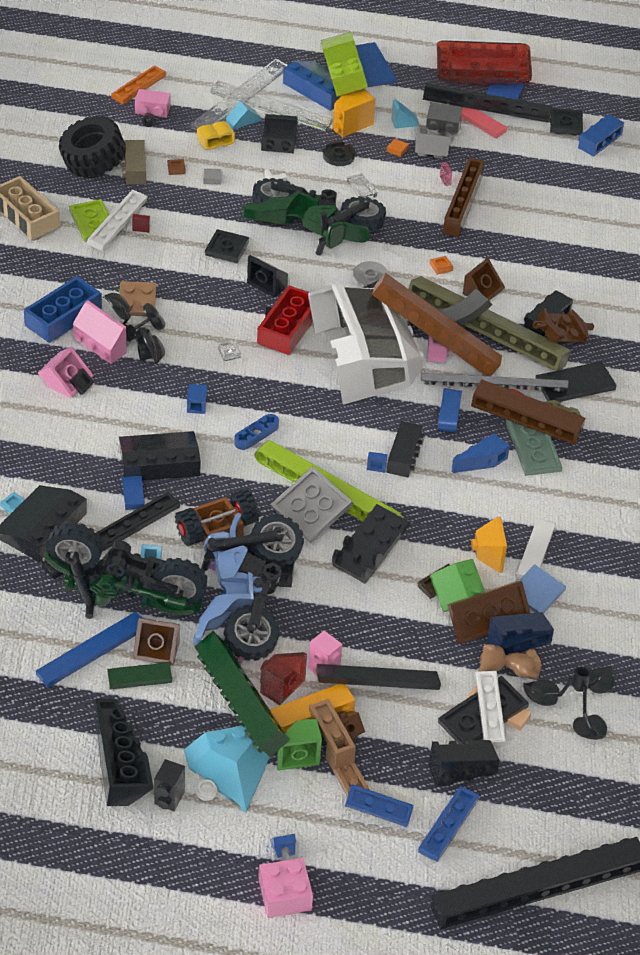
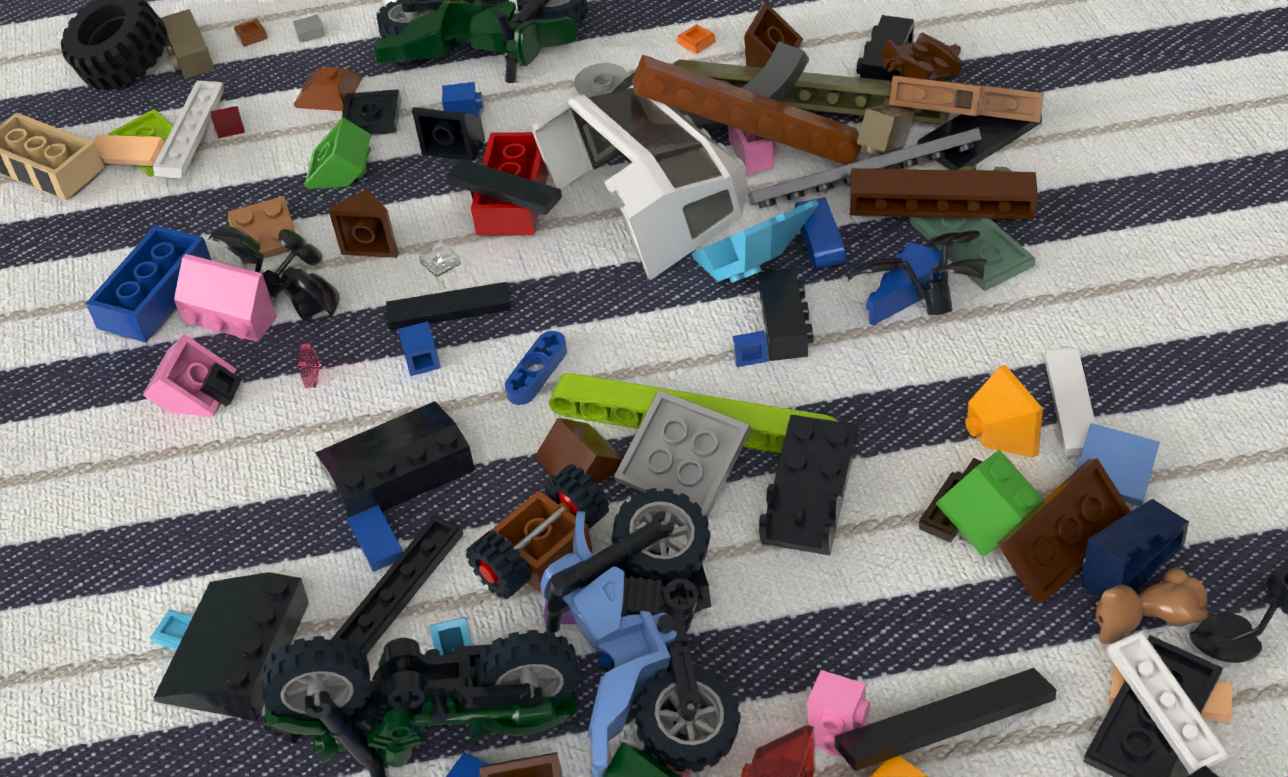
camera: 10 degrees left, 0 degrees up
(77, 221) = (128, 149): none -> light nougat tile
(133, 387) = (308, 365): none -> clear pink tile
(193, 317) = (363, 227): none -> reddish brown slope
(197, 268) = (339, 157): none -> bright green slope
(207, 222) = (327, 89): none -> dark orange slope
(223, 379) = (448, 305): none -> black tile
(260, 483) = (578, 445): none -> reddish brown slope
(281, 321) = (503, 186): none -> black tile
(283, 258) = (462, 98): none -> blue brick
(405, 405) = (745, 251): none -> medium azure wedge
(495, 466) = (937, 291): none -> black plant
(515, 361) = (885, 128): none -> dark tan brick
(573, 360) = (966, 98): none -> medium nougat bracket

